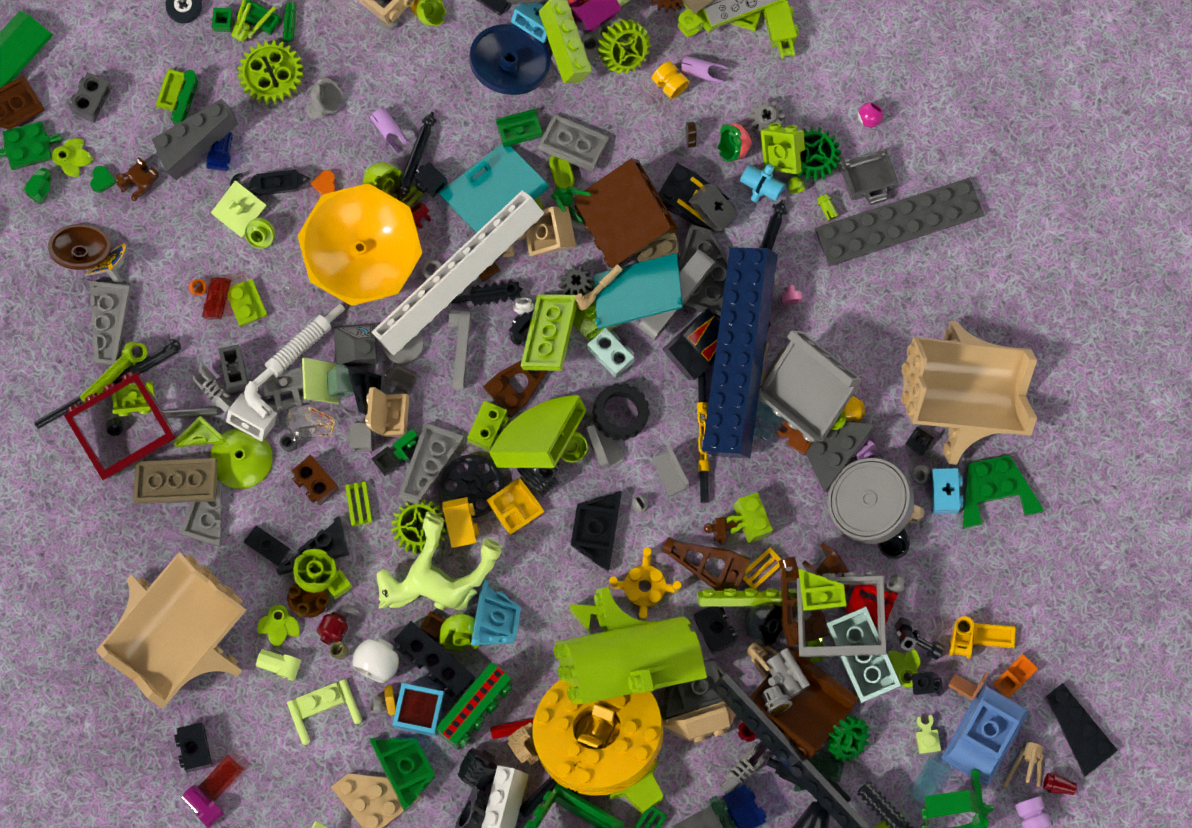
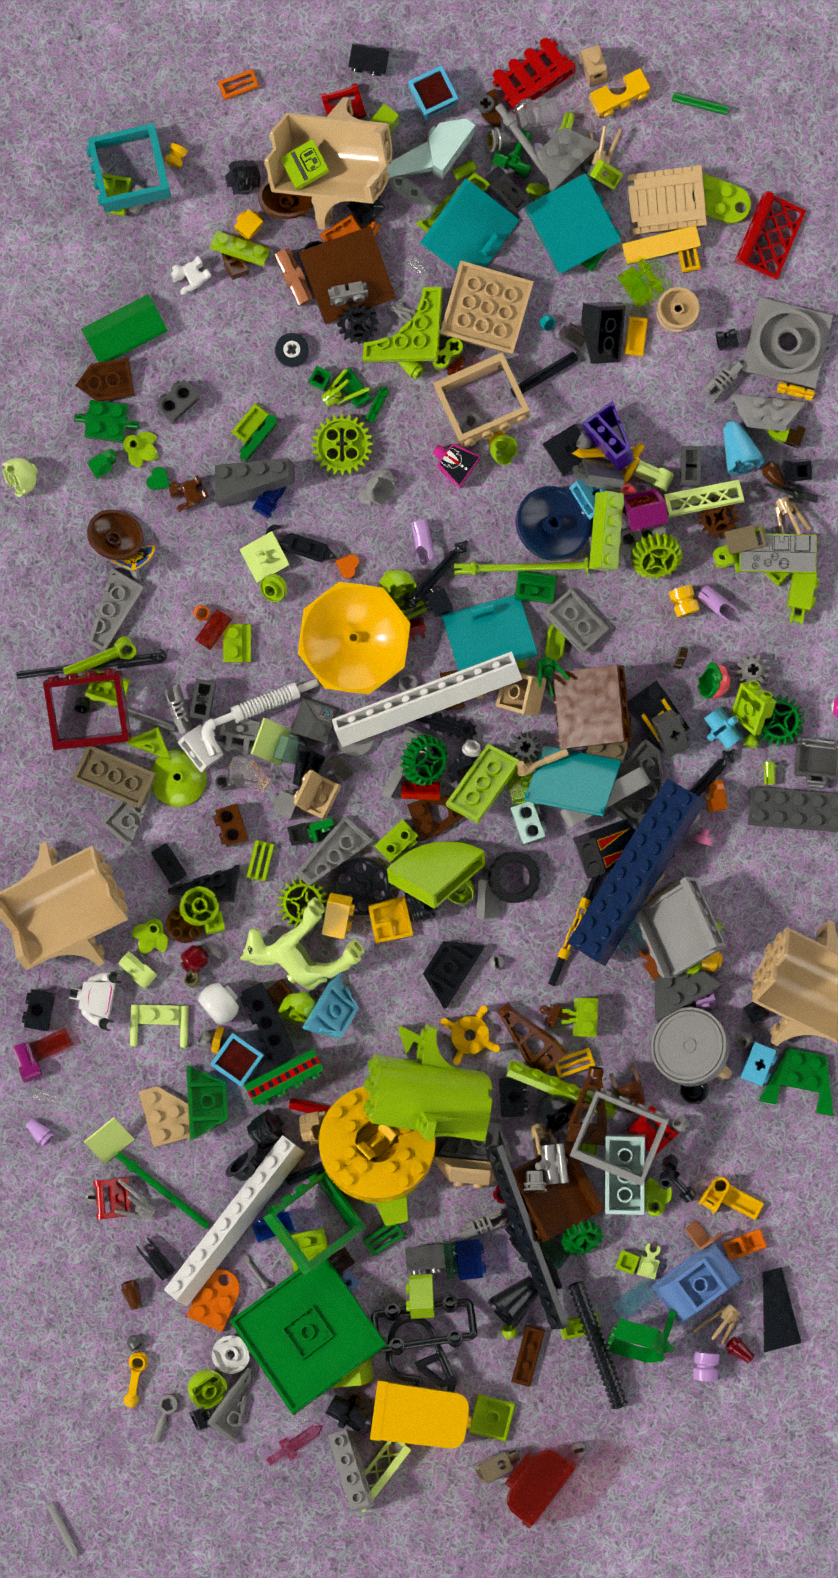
camera: 20 degrees right, 10 degrees up
(248, 708) = (97, 998): none -> white torso
(390, 43) = (456, 463): none -> torso
(451, 134) = (474, 568): none -> lime bar
(470, 328) = (428, 763): none -> green gear
(490, 367) = (416, 791): none -> red plate
(670, 472) = (533, 947): light grey panel -> none
(787, 251) = (716, 797): none -> orange rock
(820, 592) = (610, 1112): lime wing -> none
(905, 745) = (627, 1262): none -> lime plate
(926, 683) = (667, 1220): black bracket -> none

